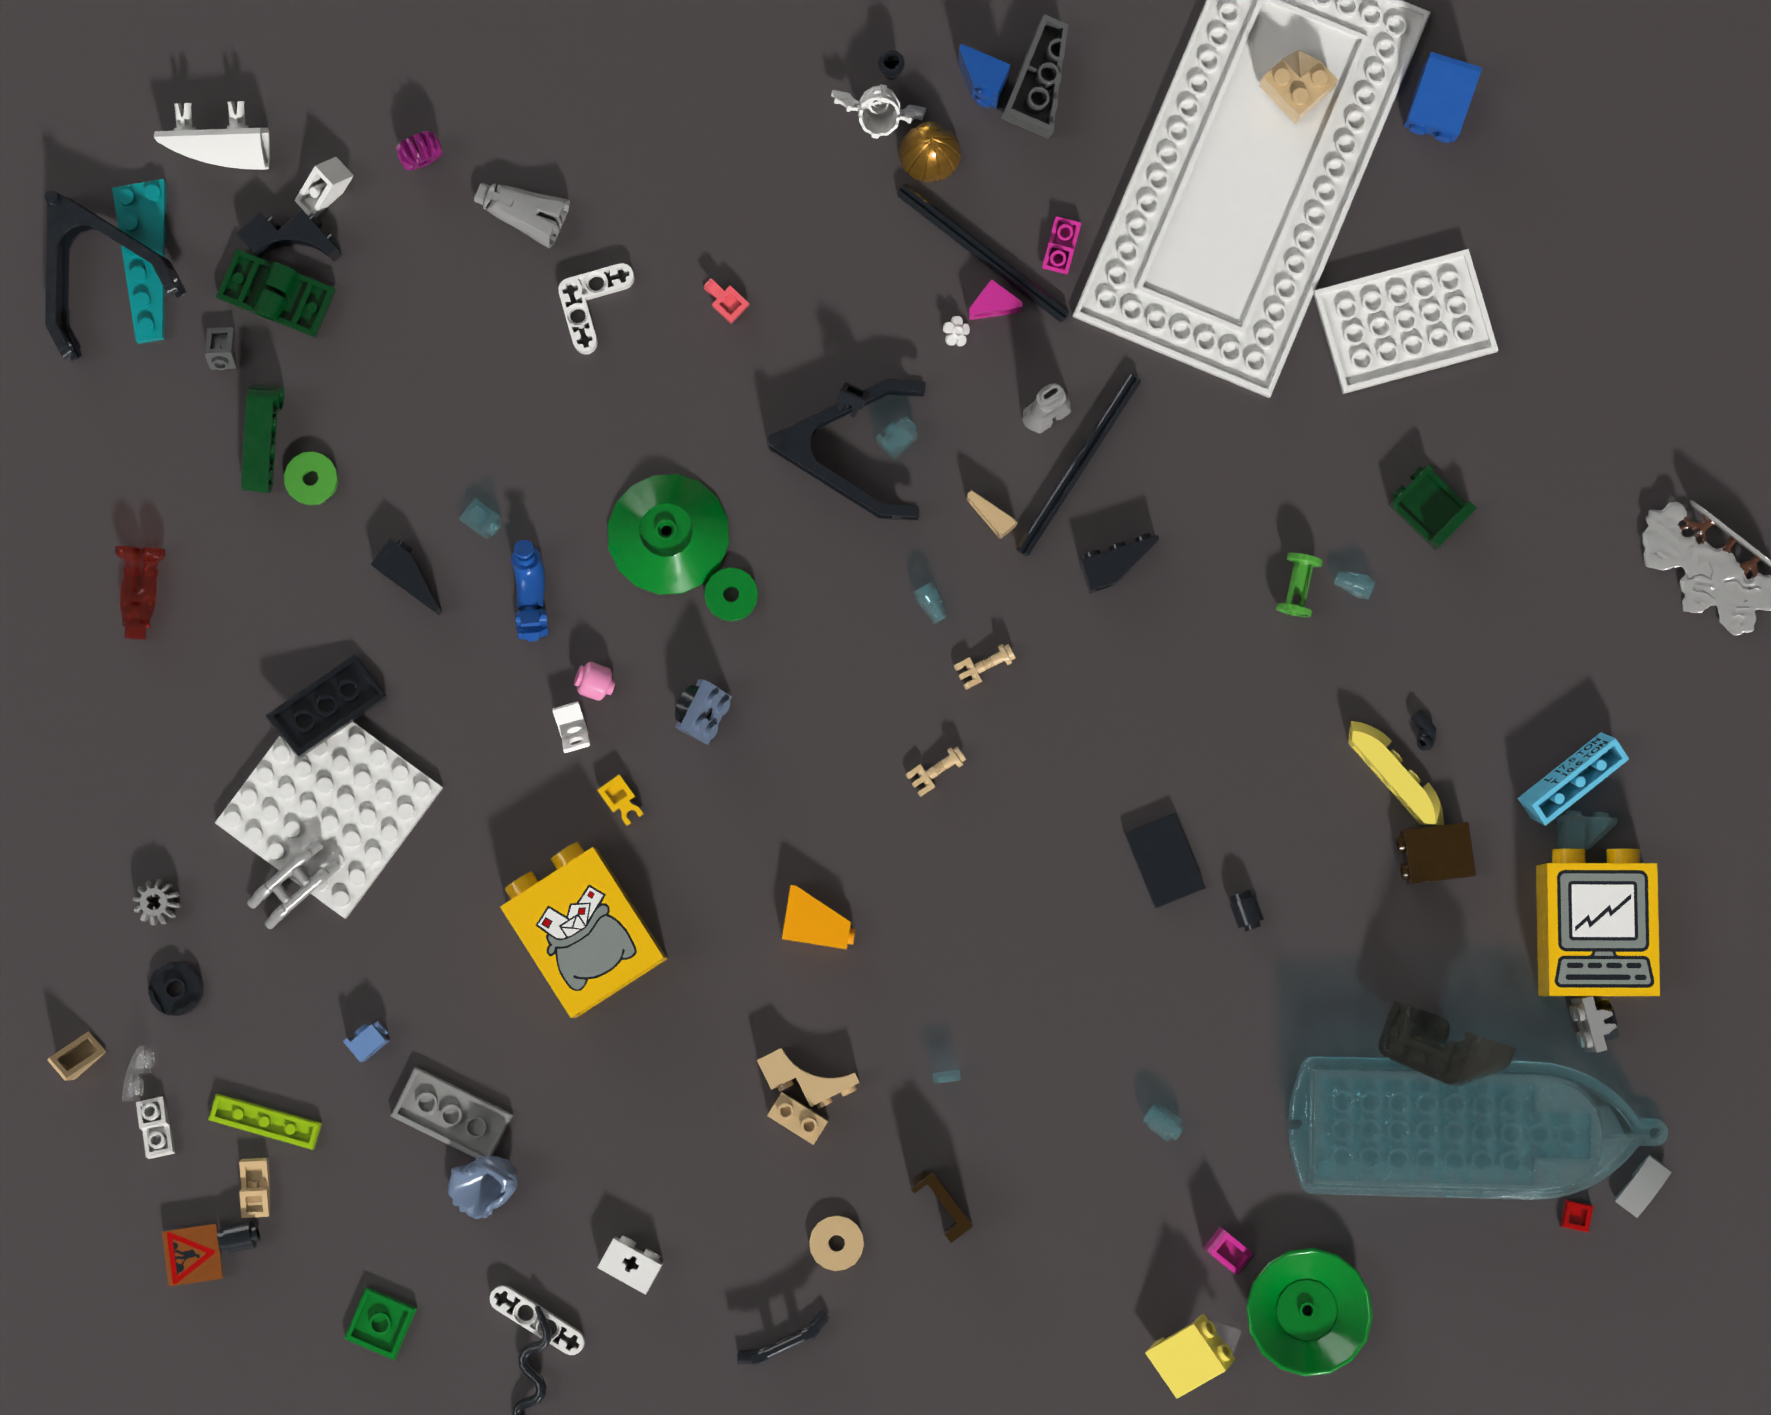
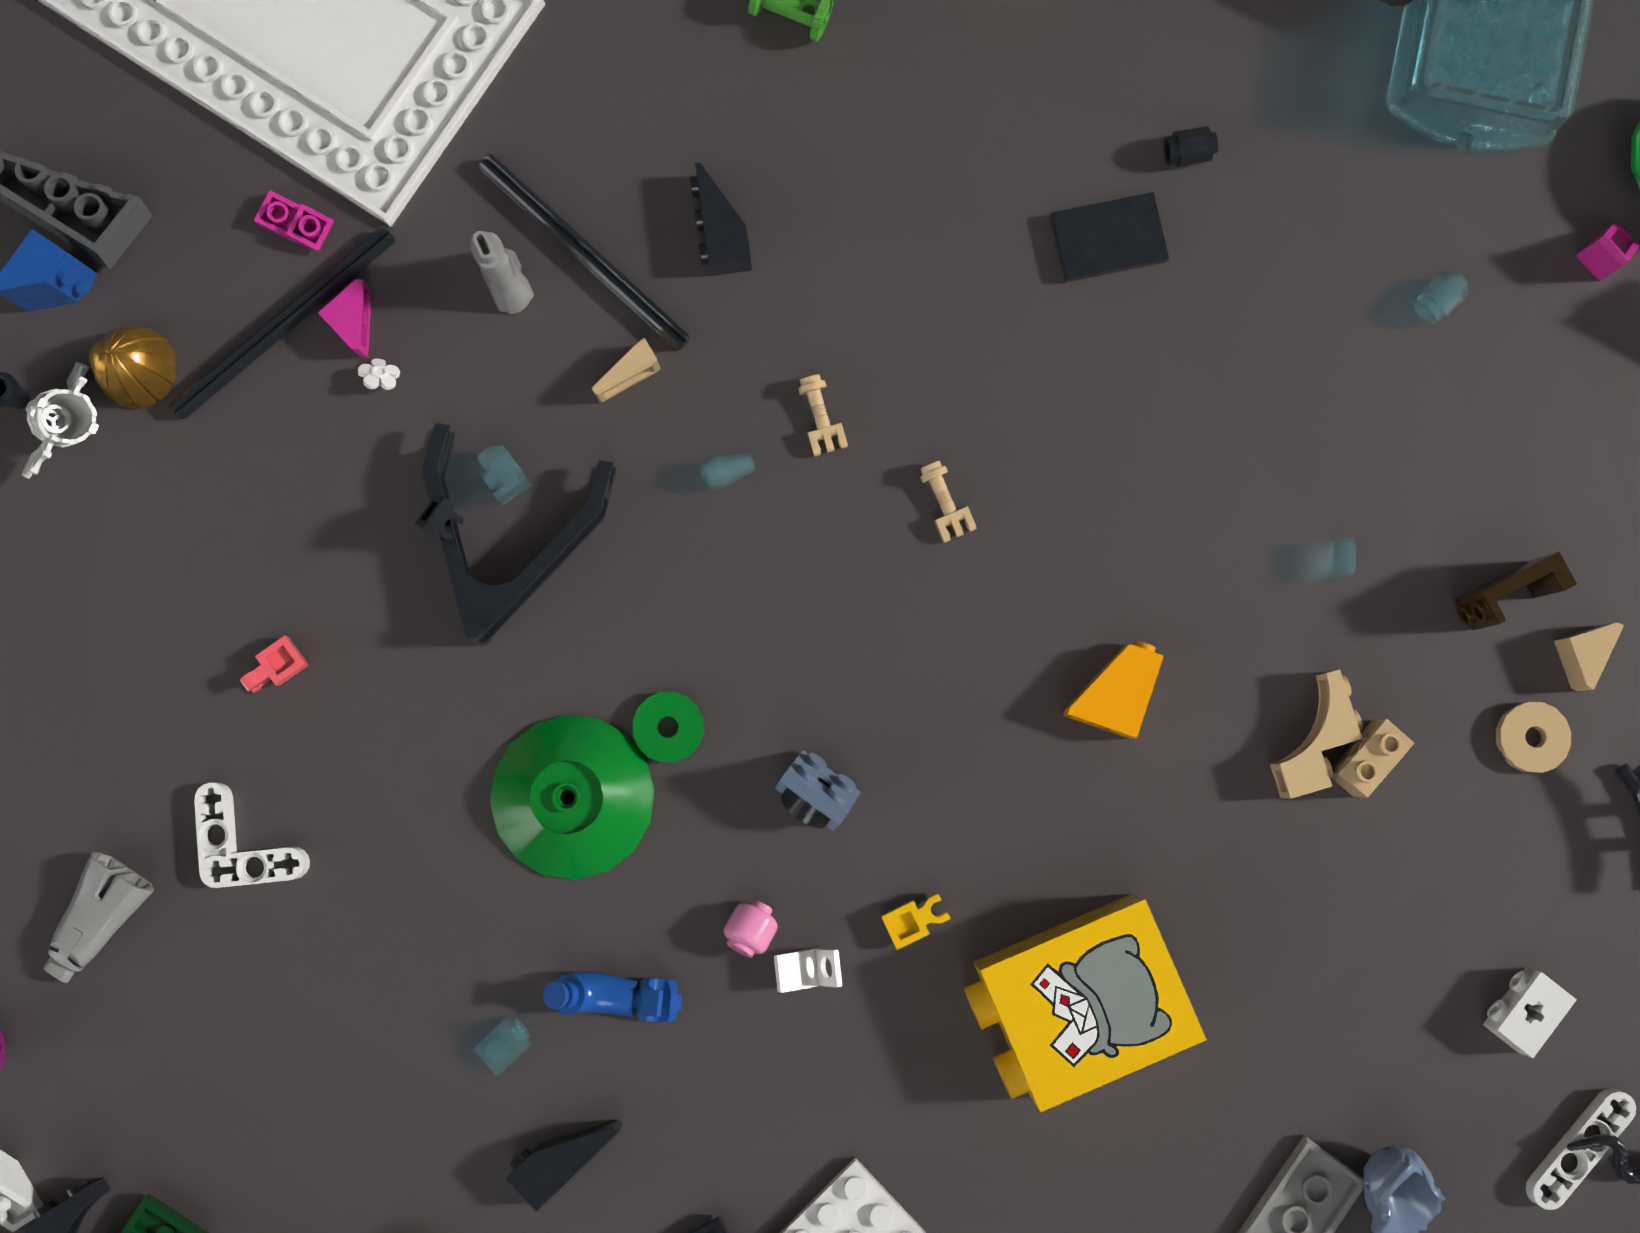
camera: 85 degrees left, 0 degrees up
(907, 1272) = (1587, 654): none -> tan slope

